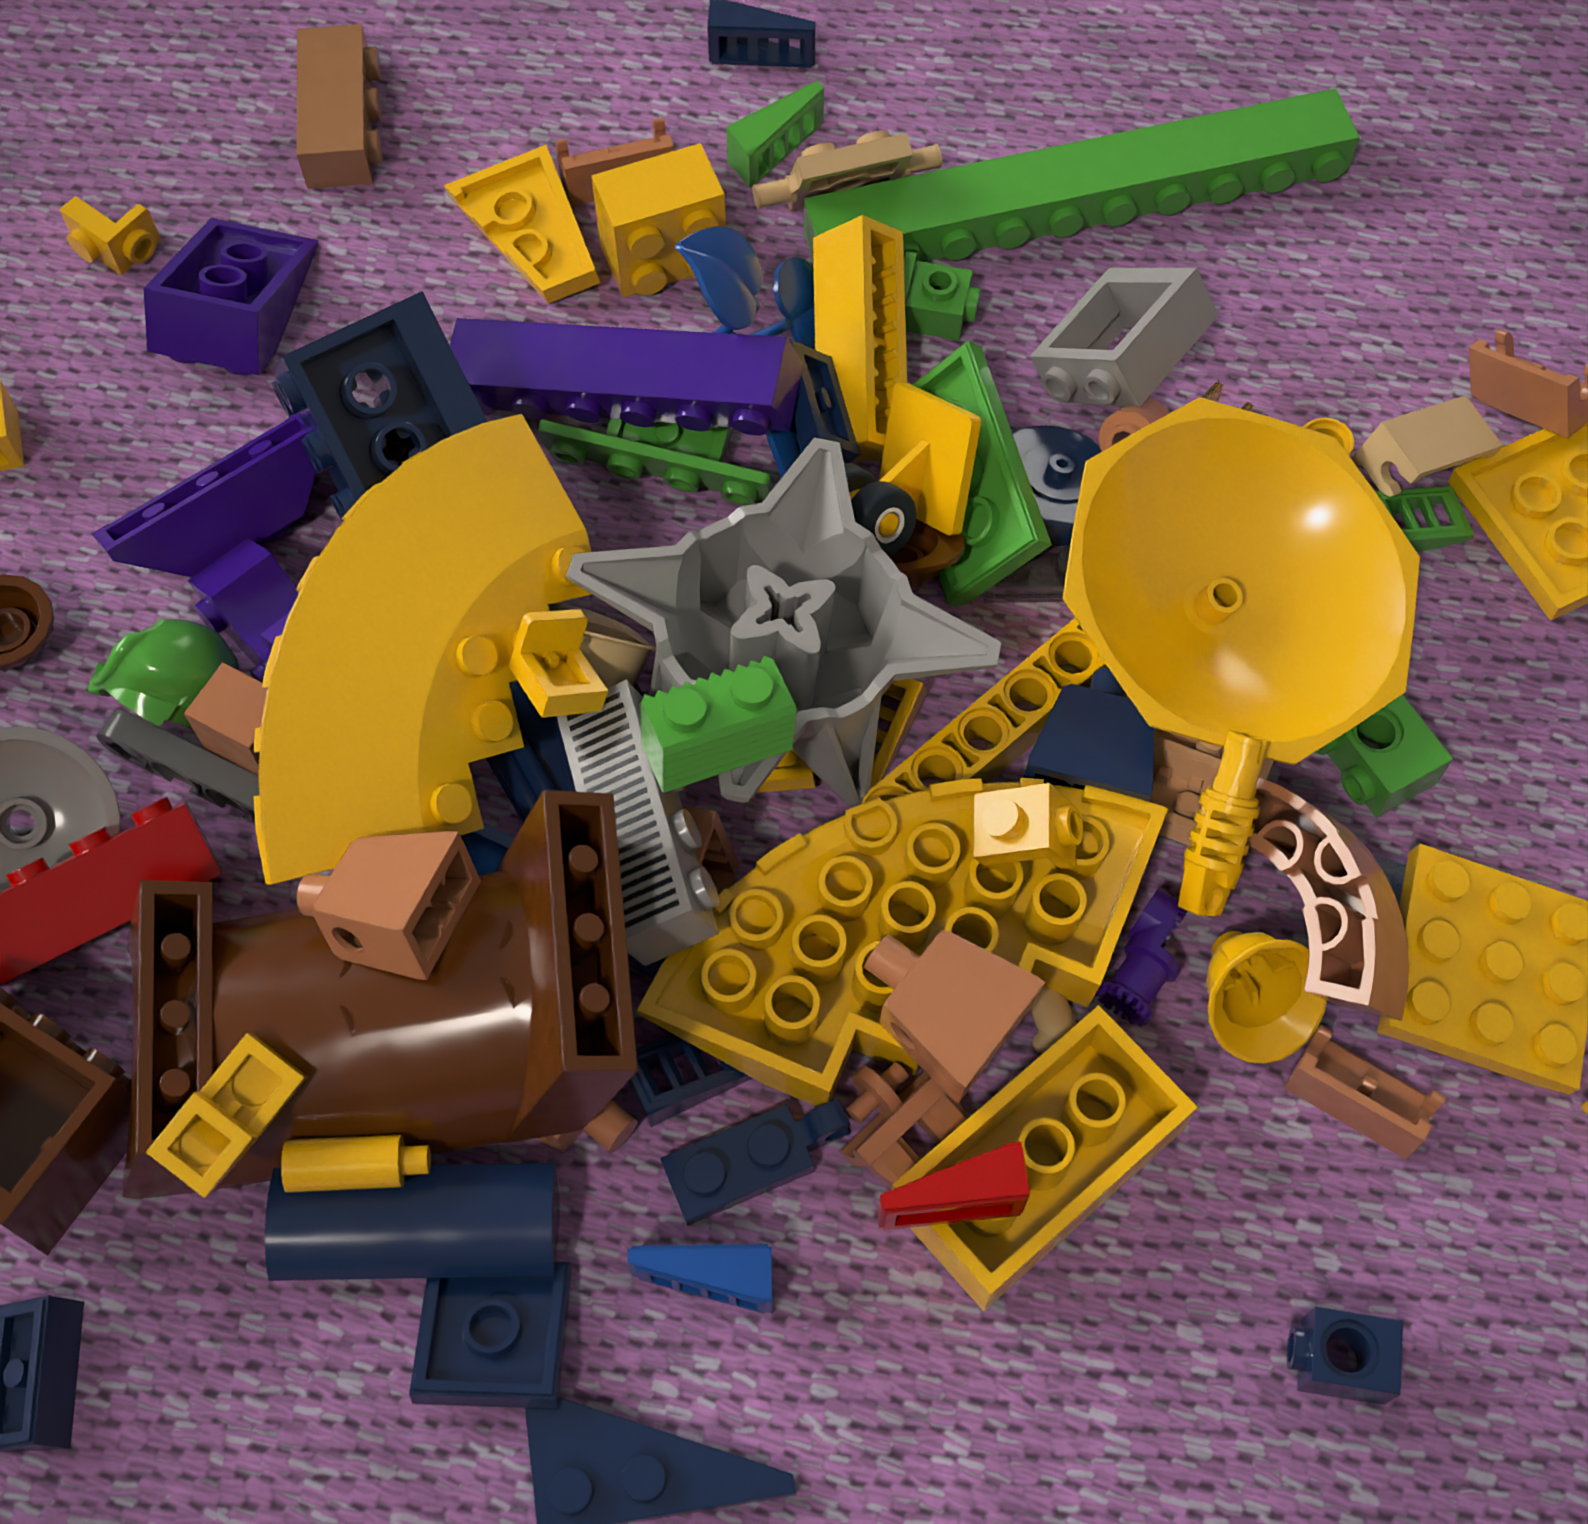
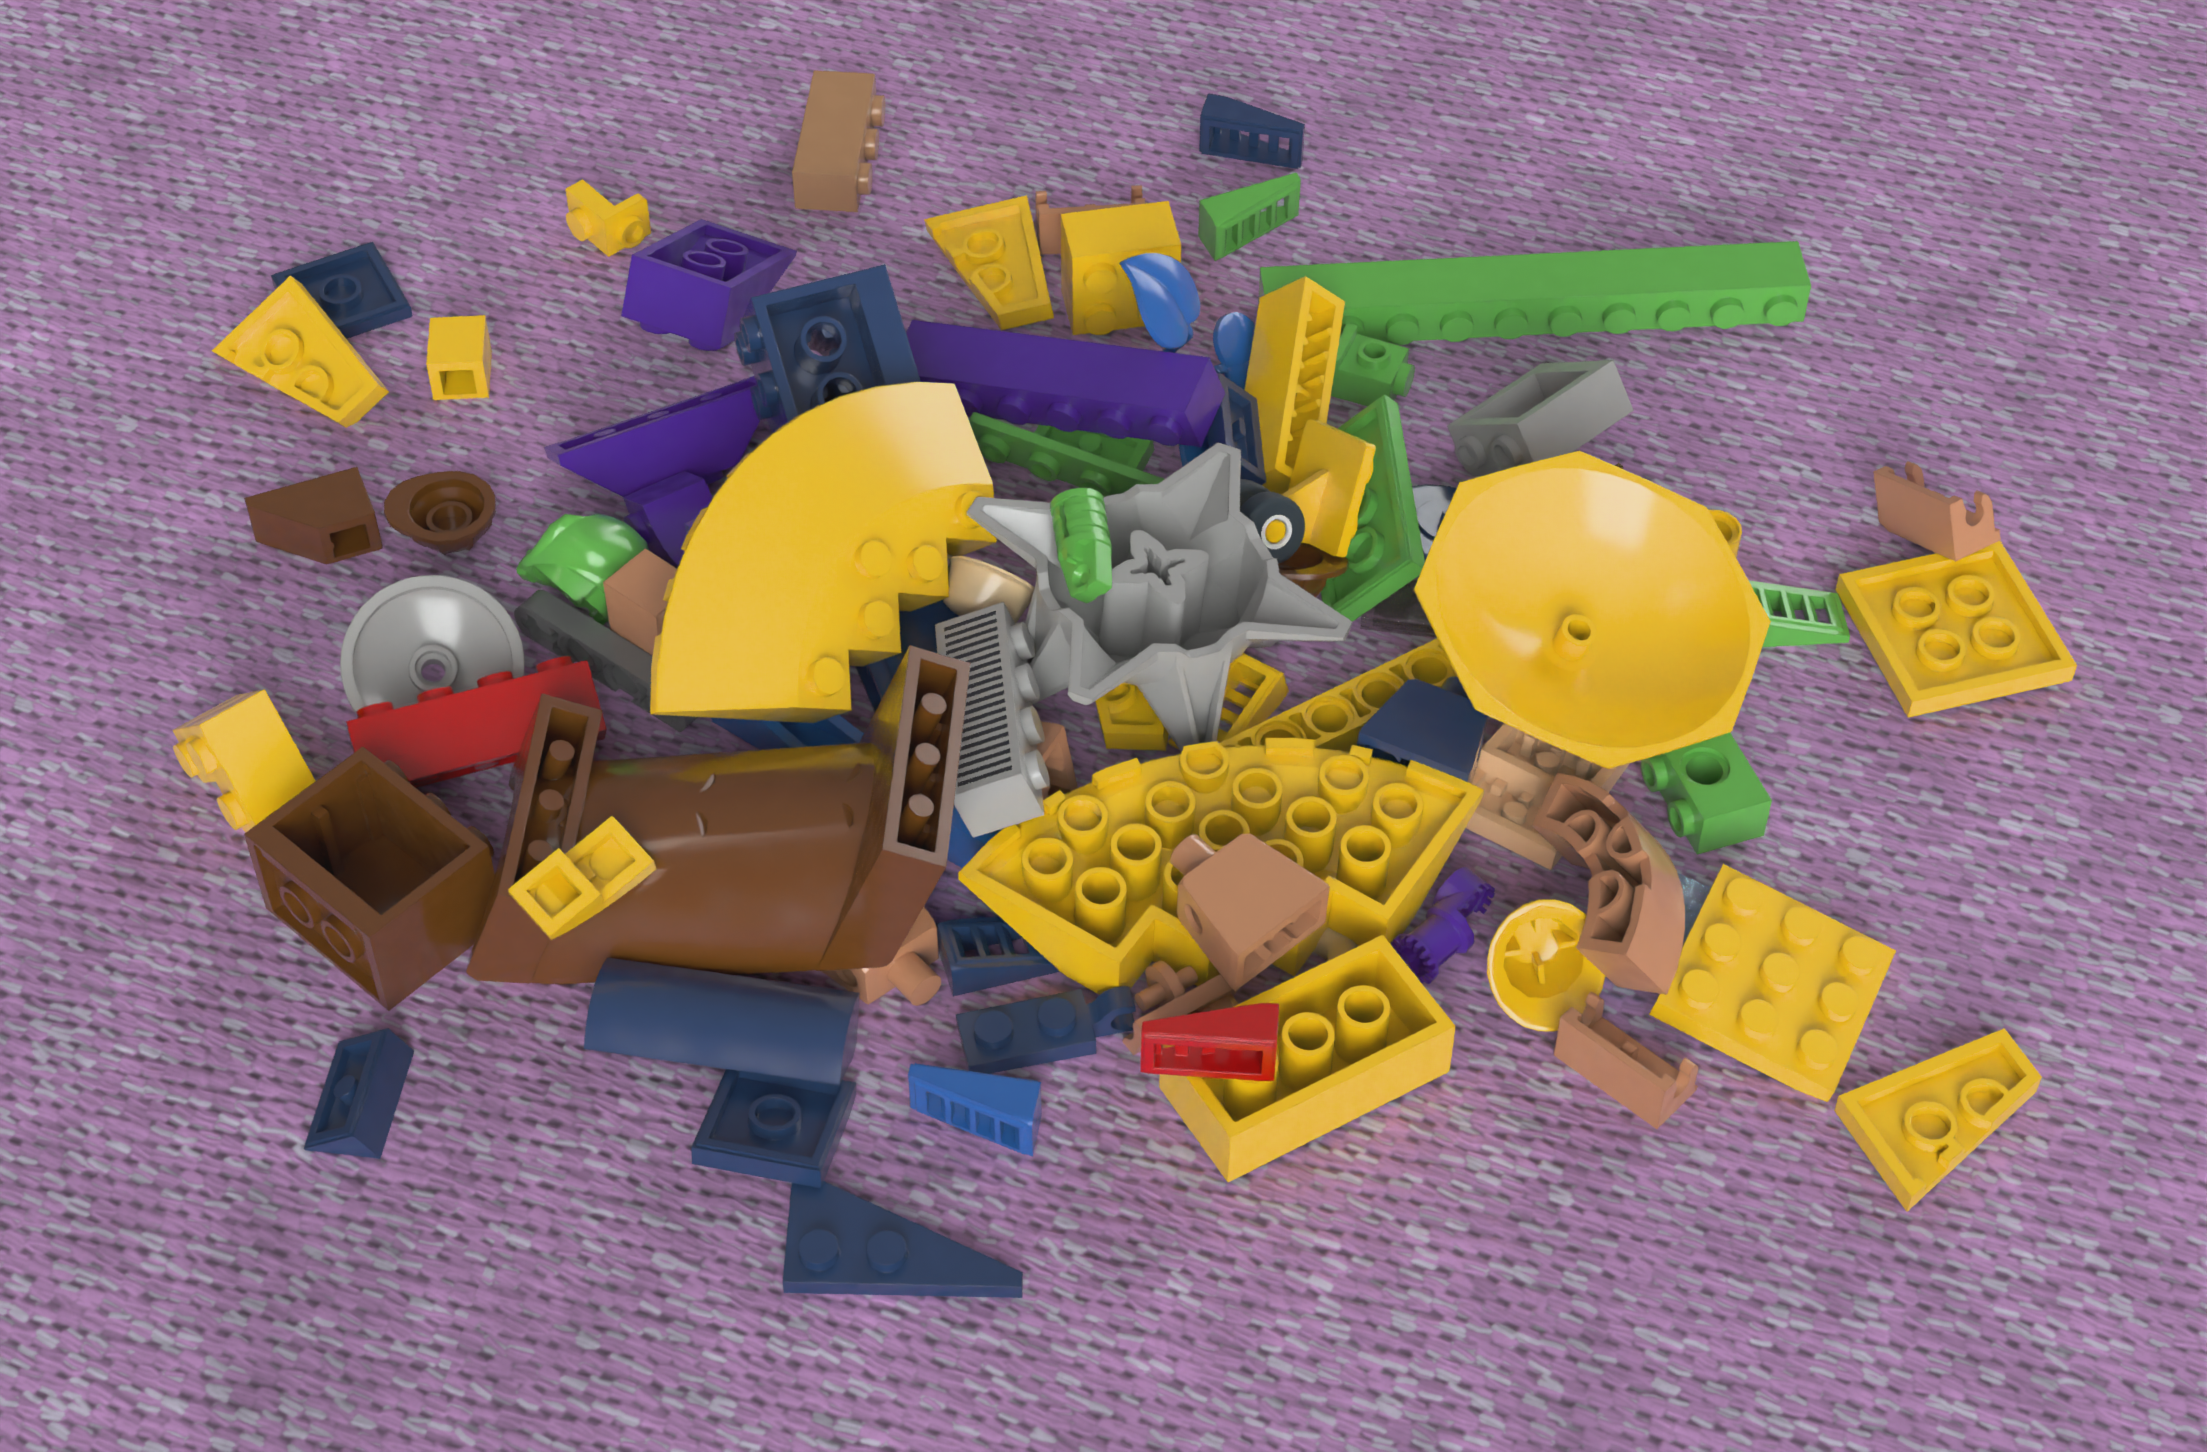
camera: 10 degrees right, 15 degrees down
(351, 1163) = (678, 953): yellow cylinder -> none
(393, 900) = (761, 732): nougat torso -> none
(553, 666) = (939, 576): yellow bracket -> none
(700, 597) = (1083, 542): none -> bright green hinge
(717, 724) = (1074, 628): bright green brick -> none
(826, 170) = (1309, 242): tan plate -> none
(1026, 826) = (1345, 773): yellow bracket -> none
(1223, 826) = (1532, 806): yellow hinge -> none
(1372, 1338) = (1573, 1241): dark blue brick -> none
(1426, 443) = (1812, 541): tan hinge -> none

